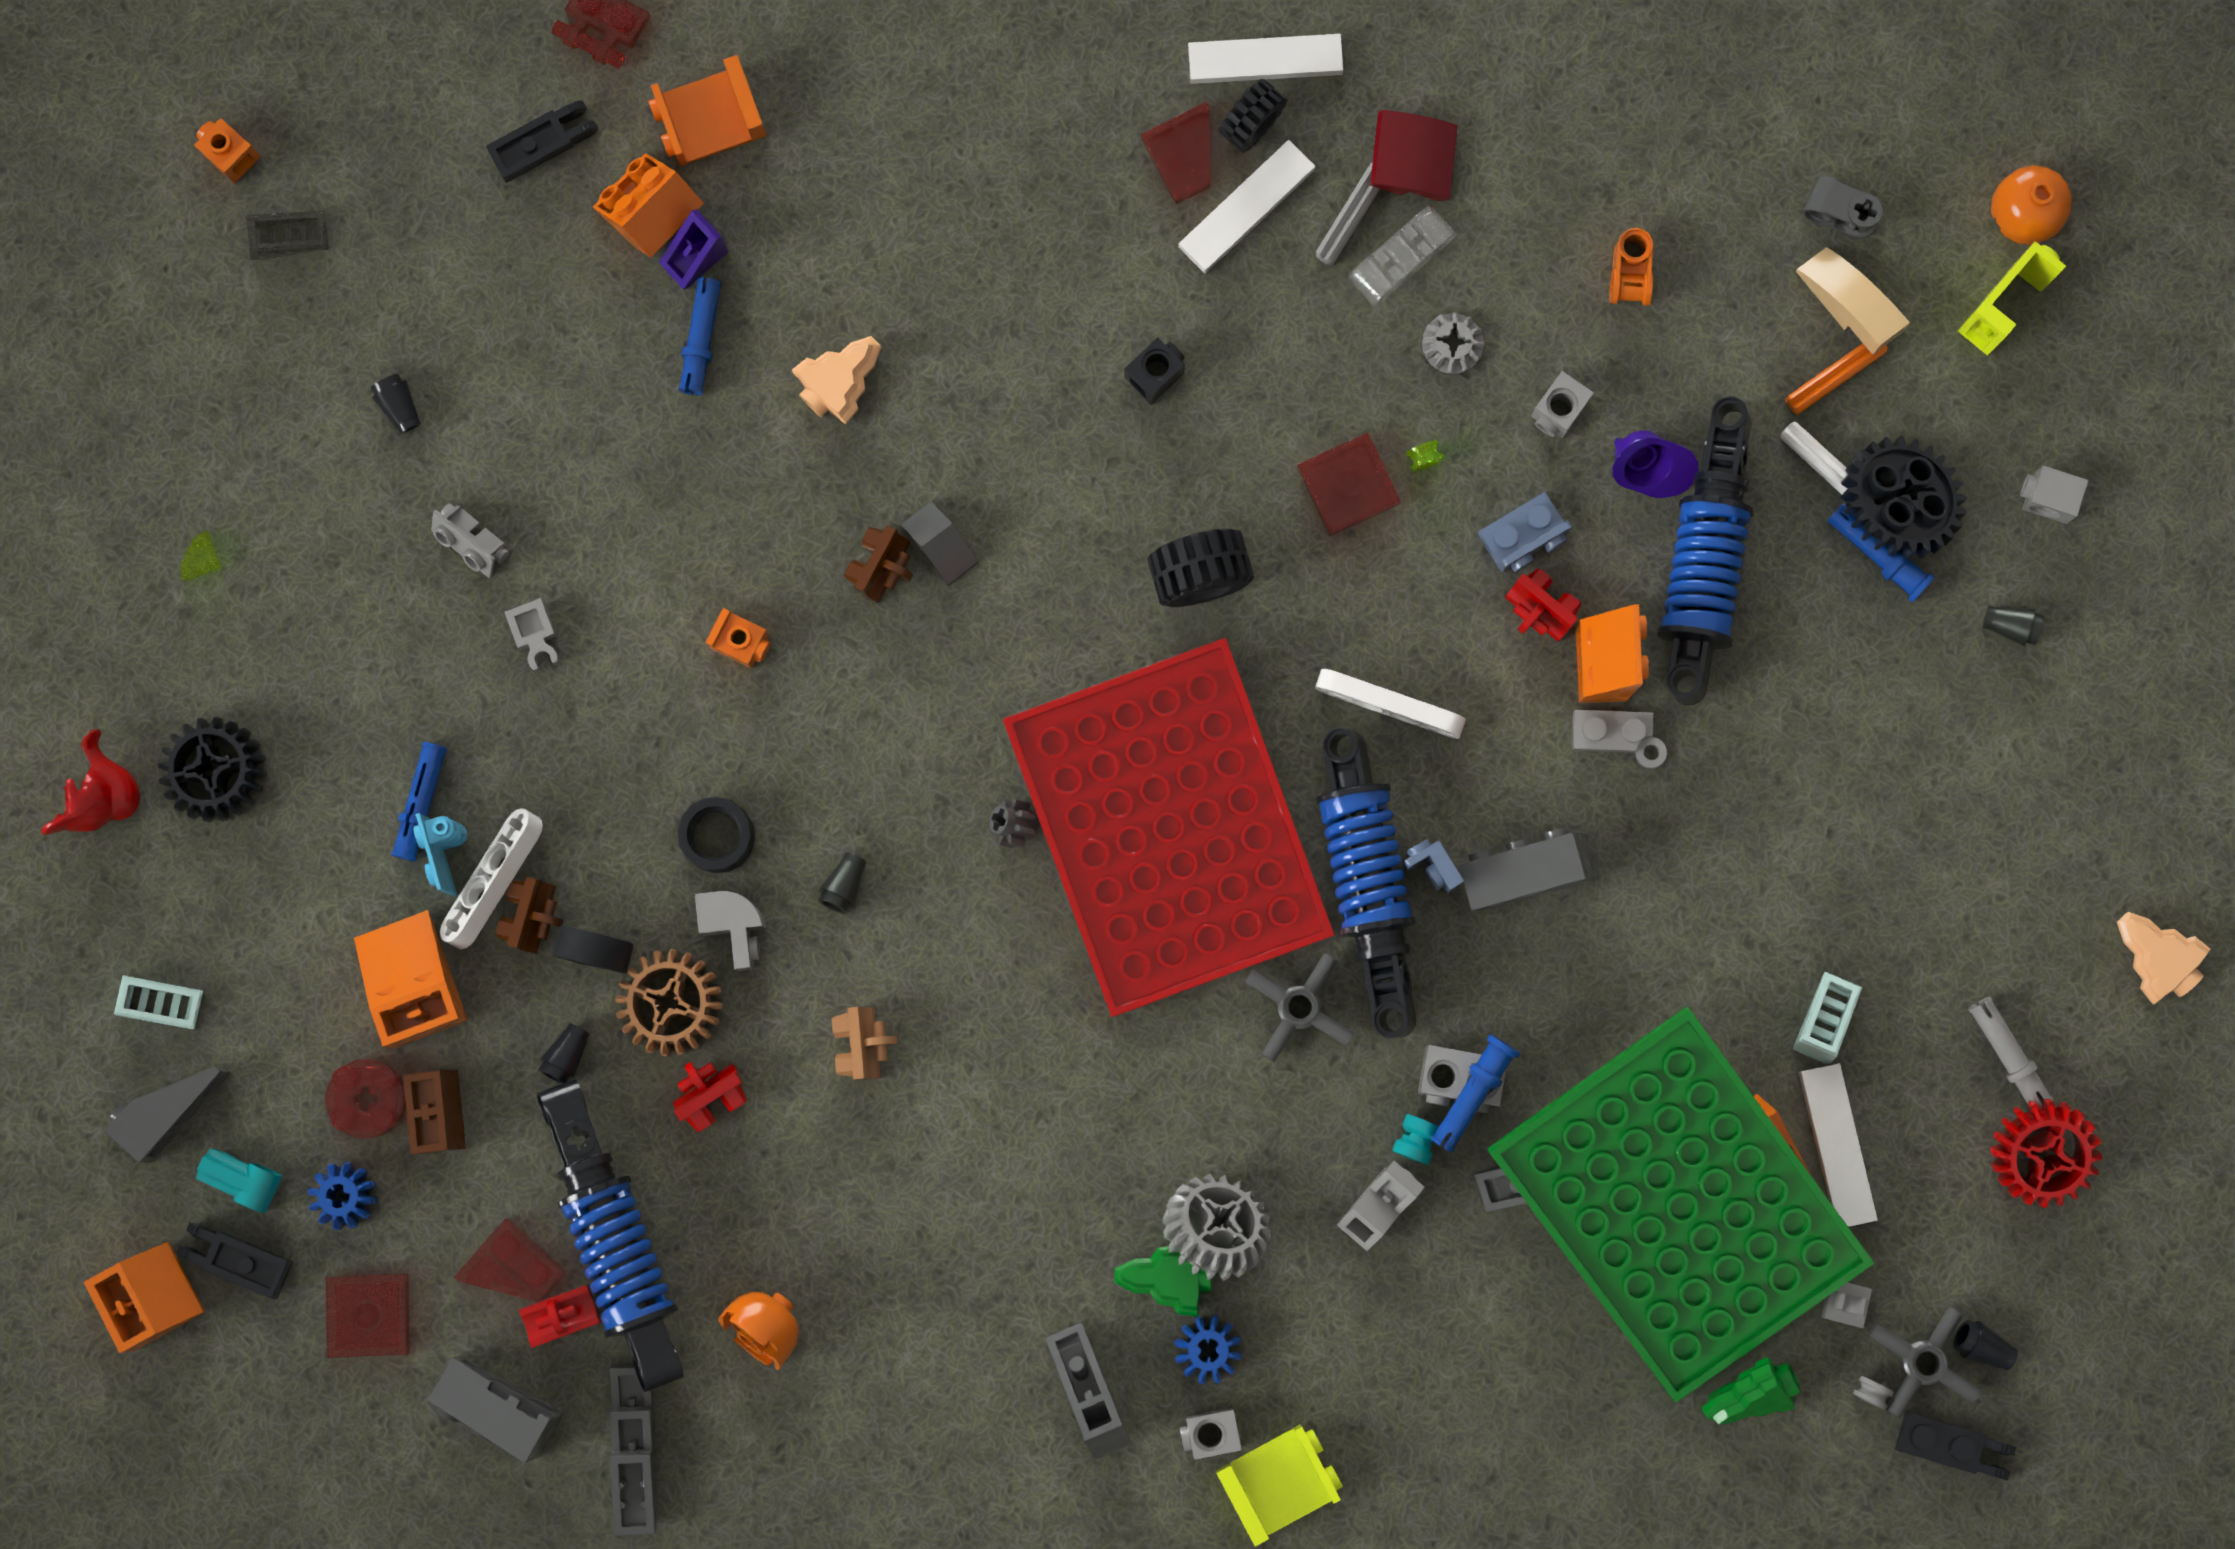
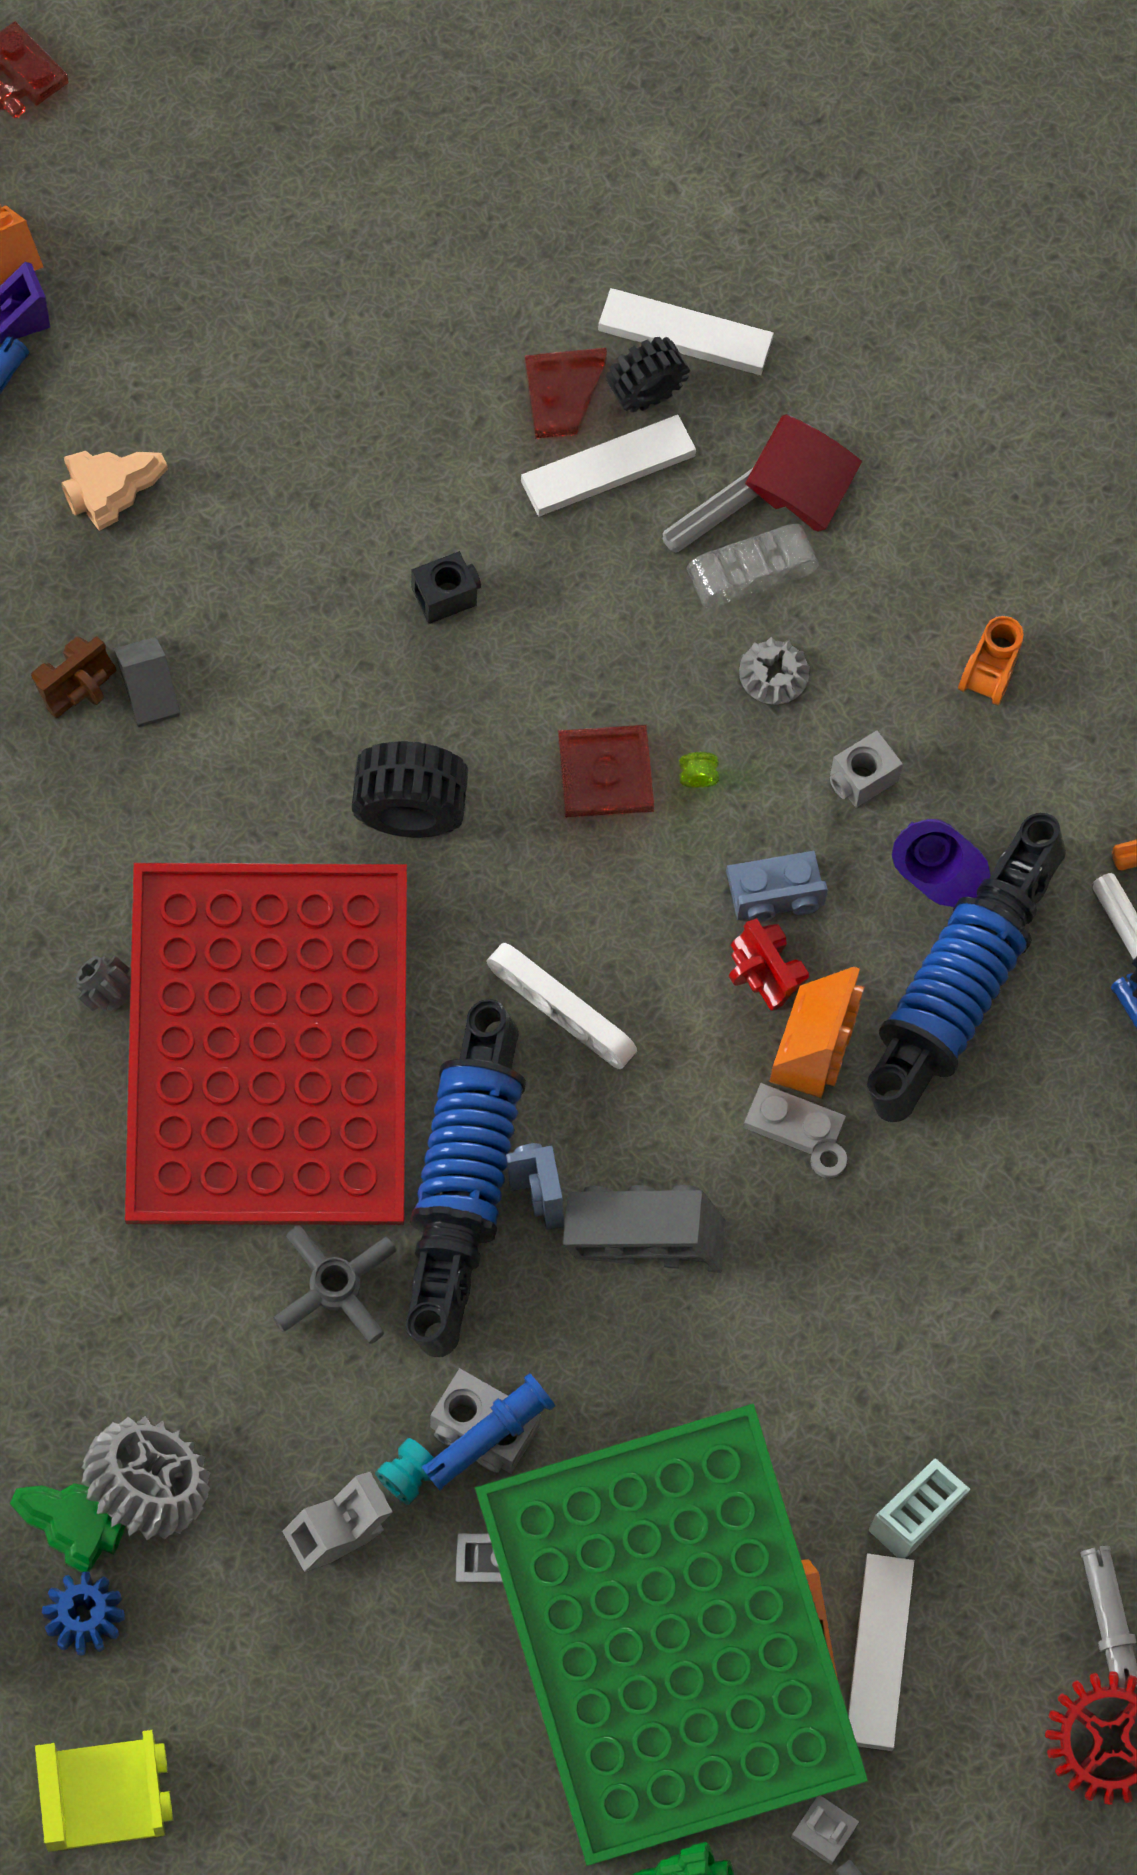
camera: 10 degrees right, 15 degrees down
(708, 115) = (85, 190): orange panel -> none
(1229, 1439) = (64, 1722): light grey brick -> none

